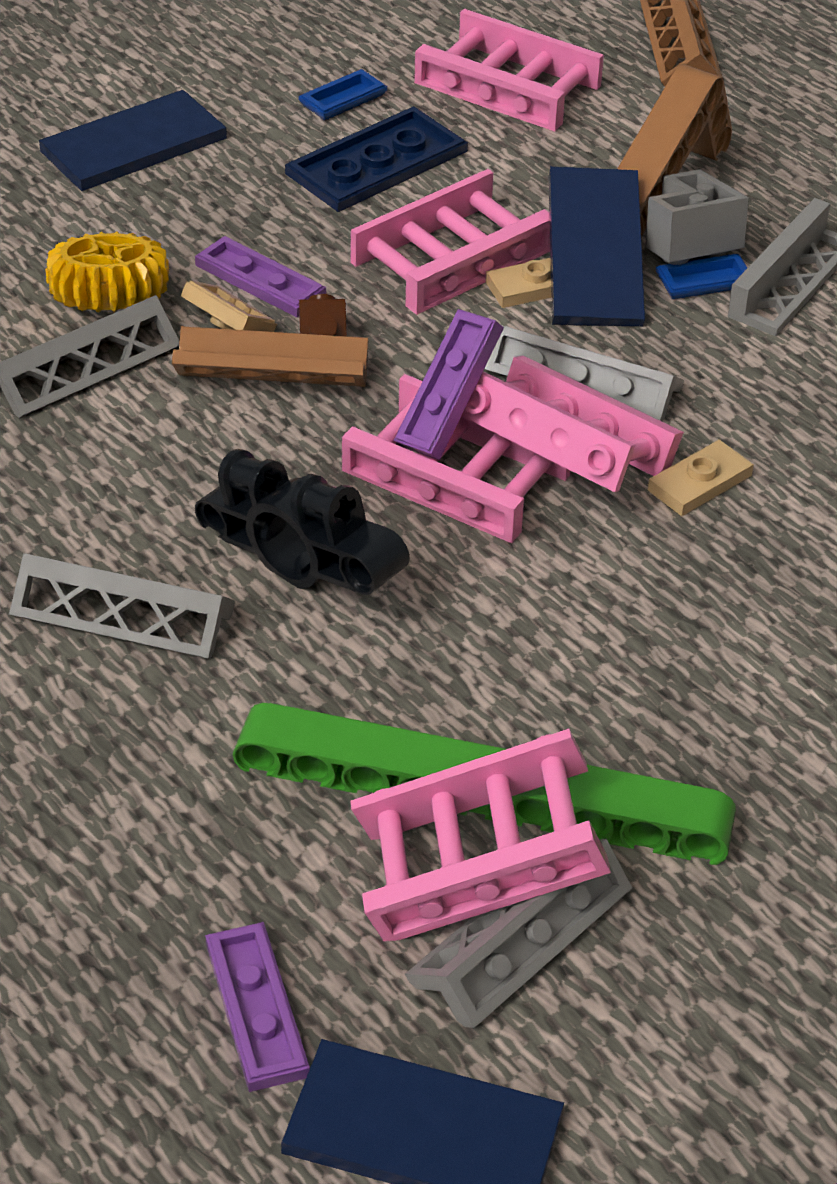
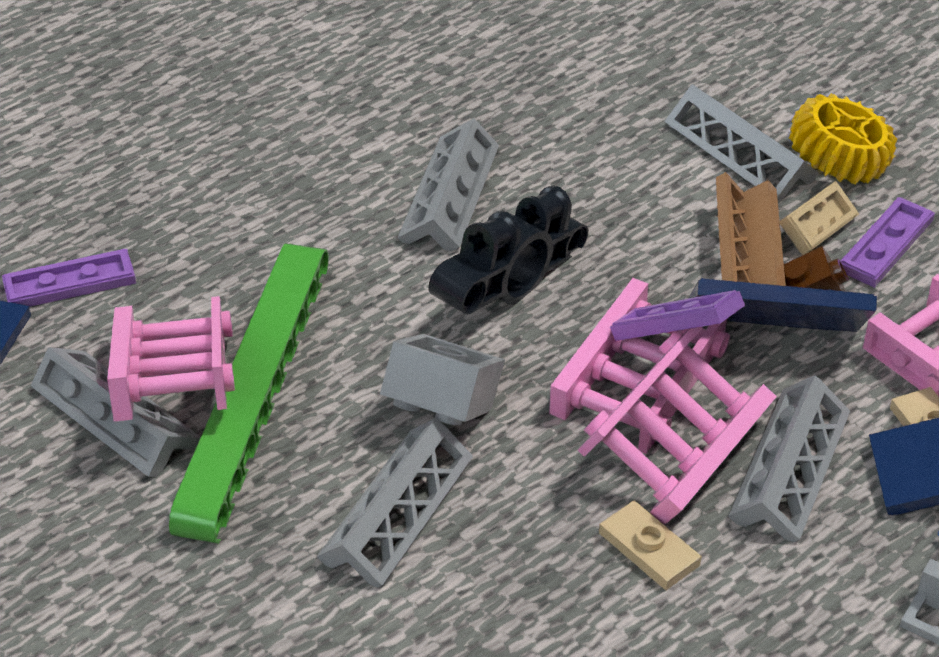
camera: 90 degrees right, 0 degrees up
(399, 336) = (794, 305): none -> dark blue tile
(507, 590) = (441, 378): none -> light grey brick
(660, 663) = (383, 494): none -> light grey fence

